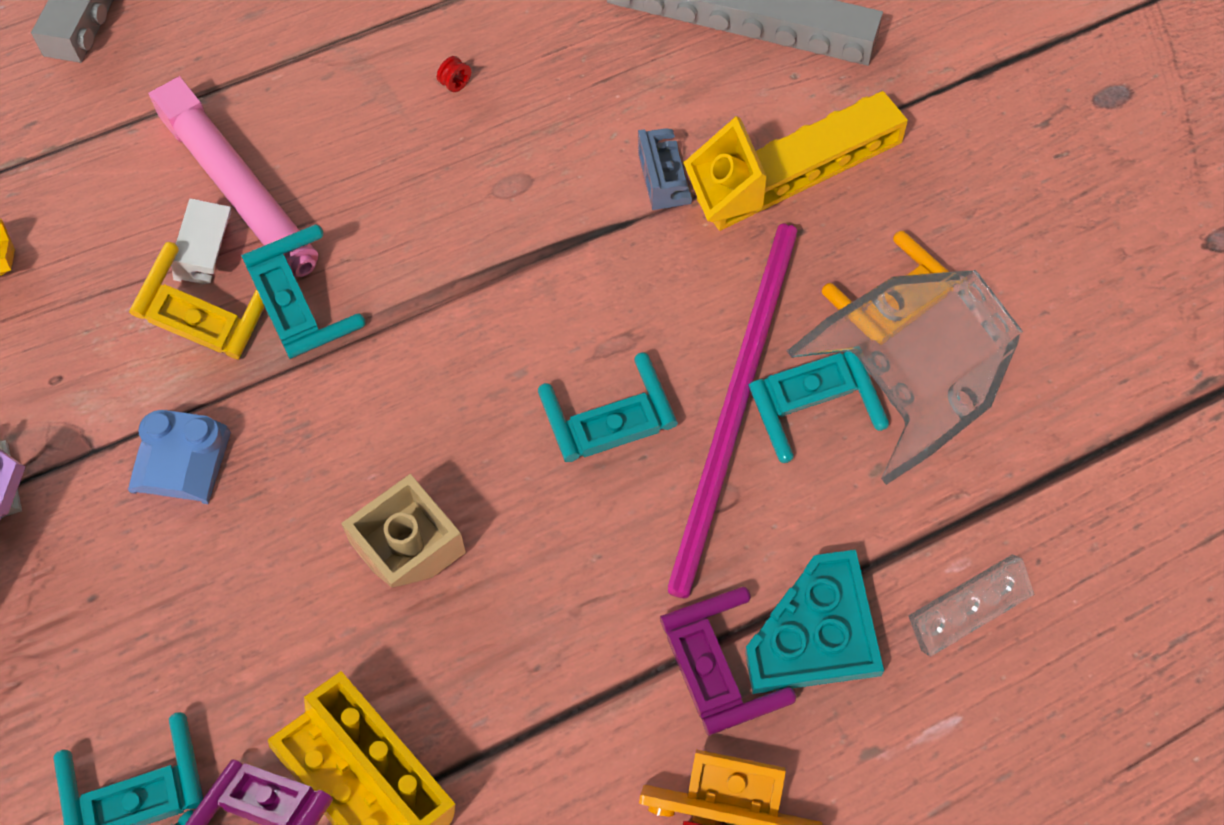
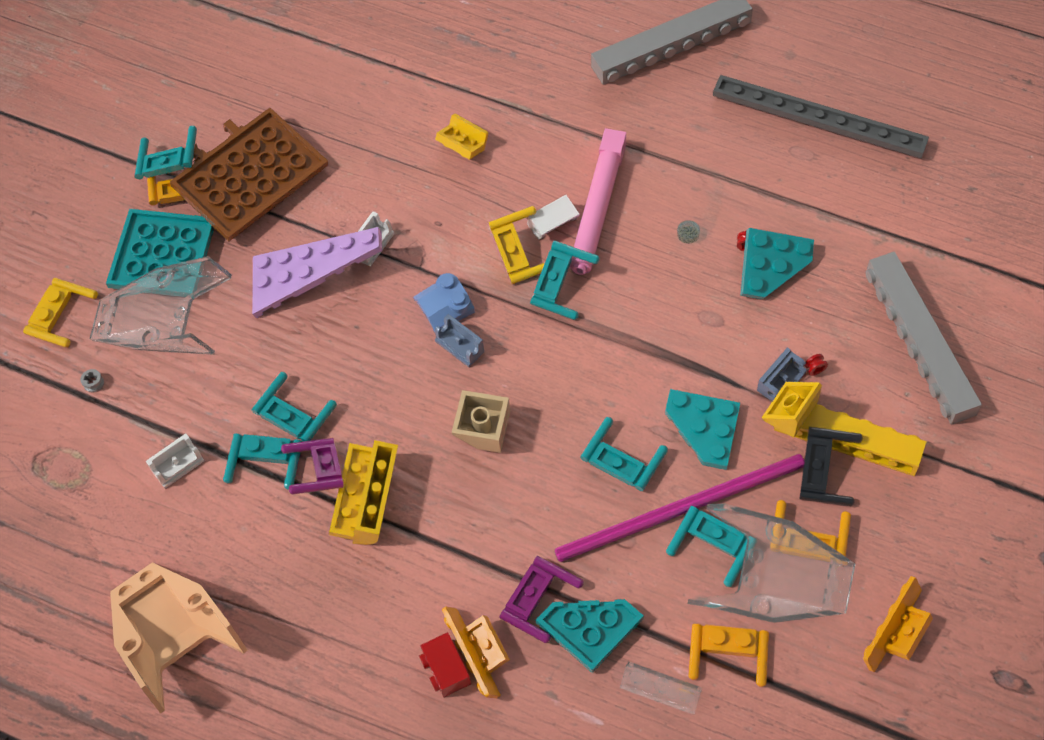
camera: 55 degrees right, 0 degrees up
(255, 478) = (459, 341): none -> sand blue hinge
(376, 122) = (688, 231): none -> clear light blue tile
(506, 69) = (772, 260): none -> teal plate
(648, 293) = (705, 425): none -> teal plate
(681, 124) = (816, 364): none -> red bush
(815, 214) = (817, 465): none -> black plate
(963, 480) = (729, 642): none -> light orange plate
(1096, 284) = (901, 628): none -> light orange bracket

